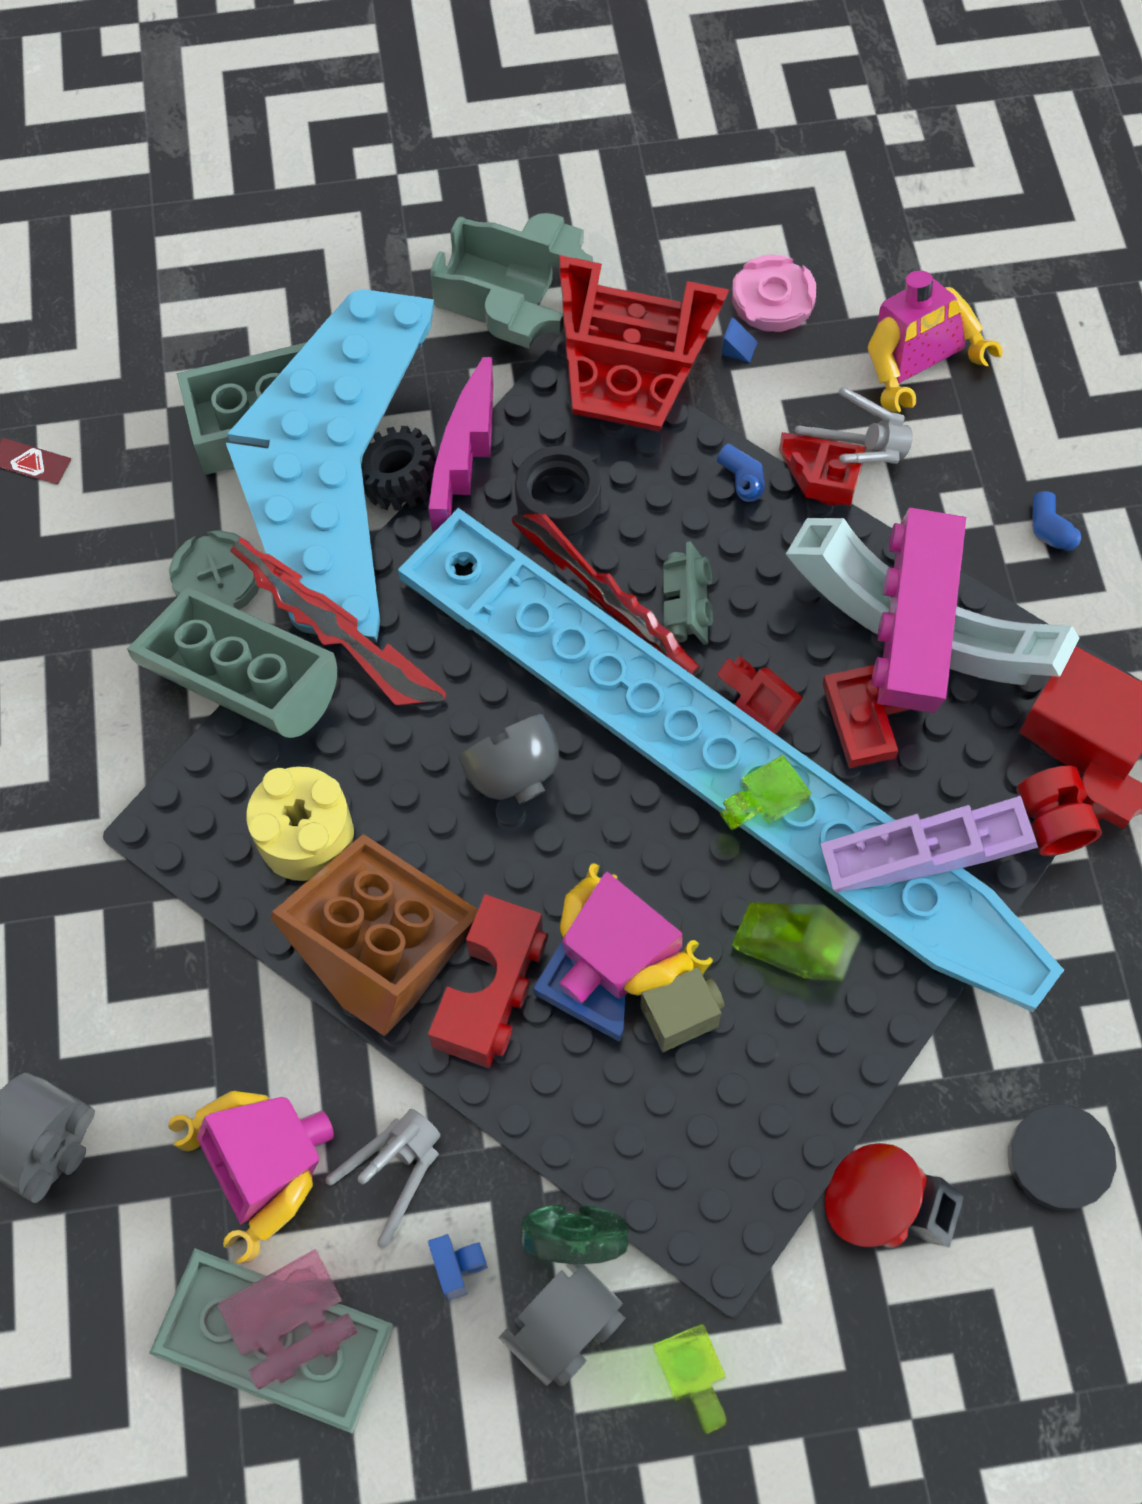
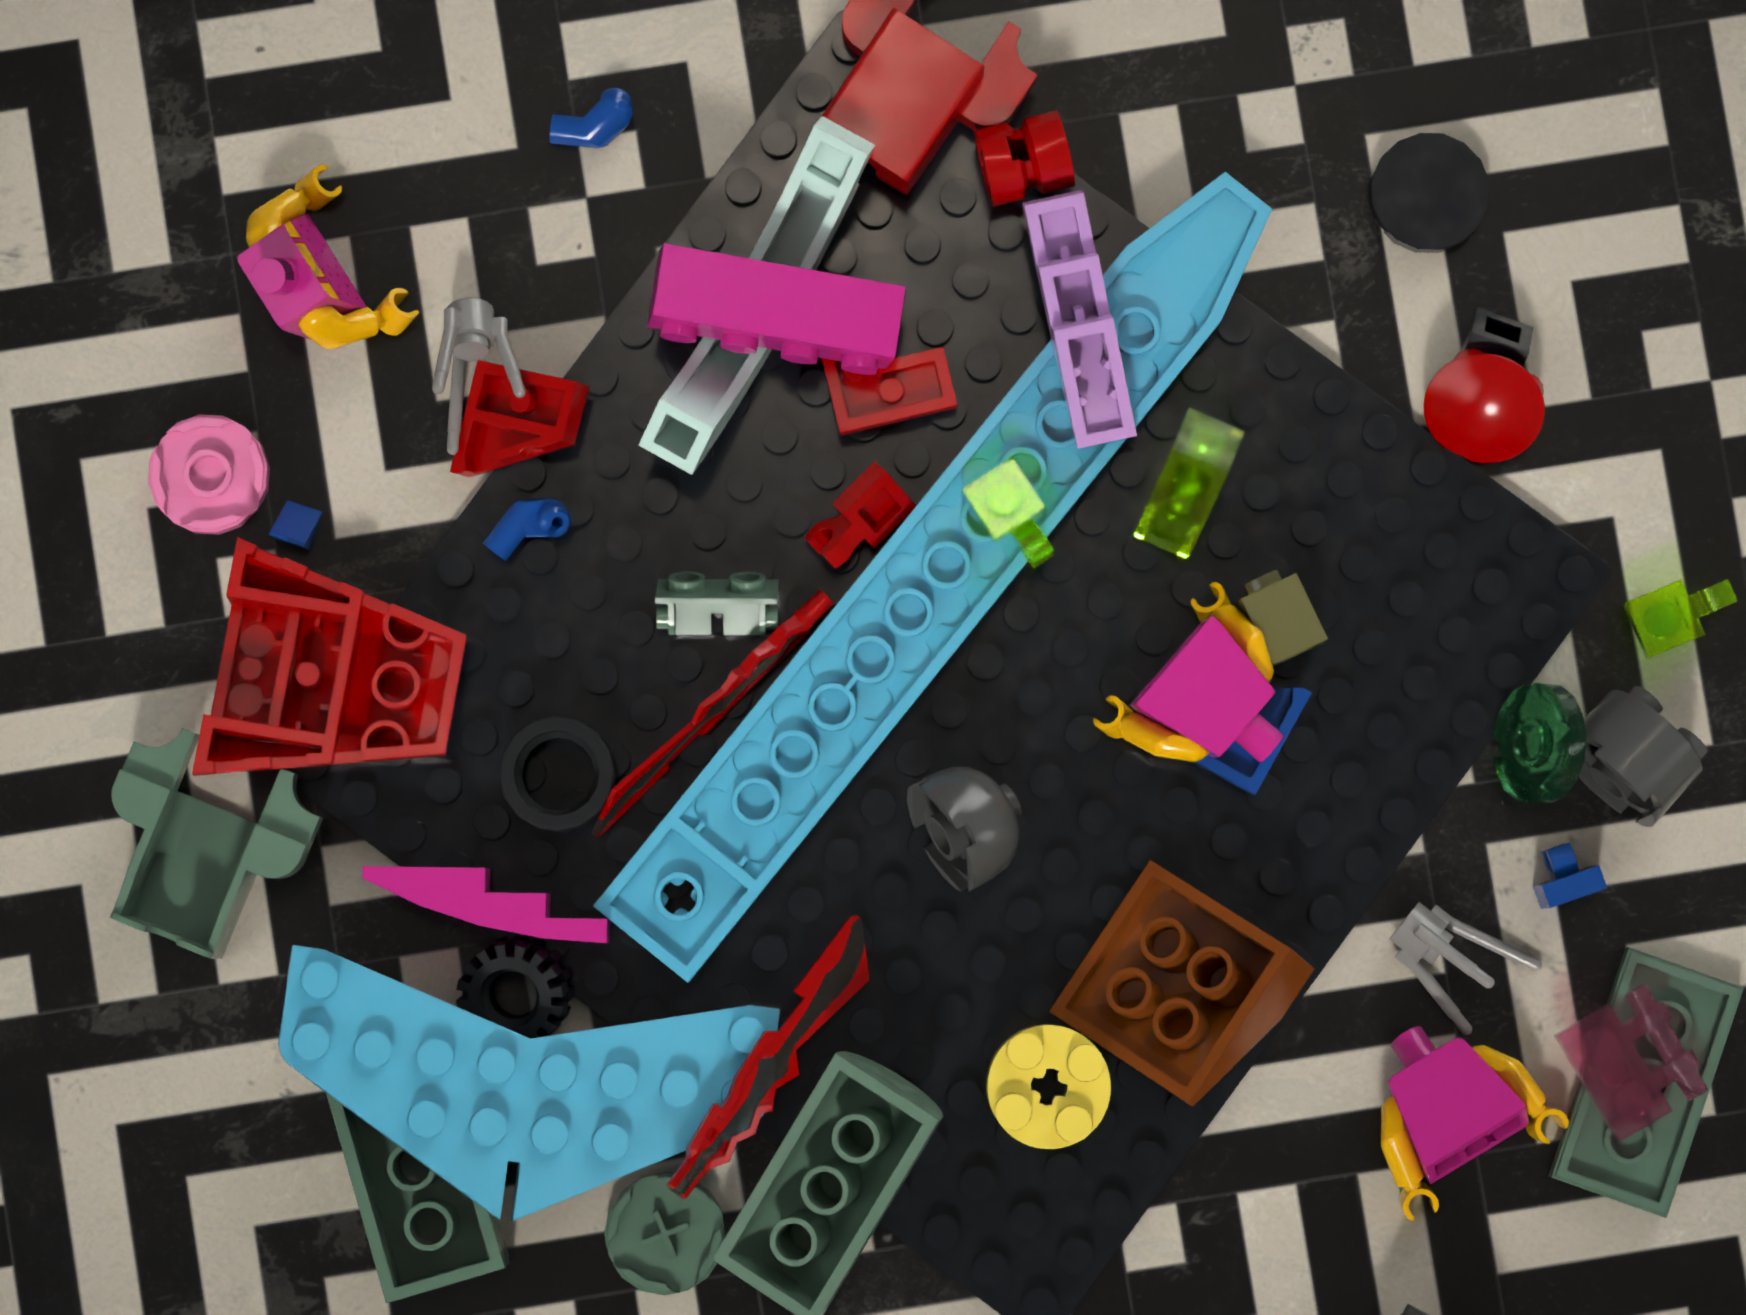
camera: 90 degrees left, 20 degrees up
(476, 1023) = (1297, 860): red arch -> none

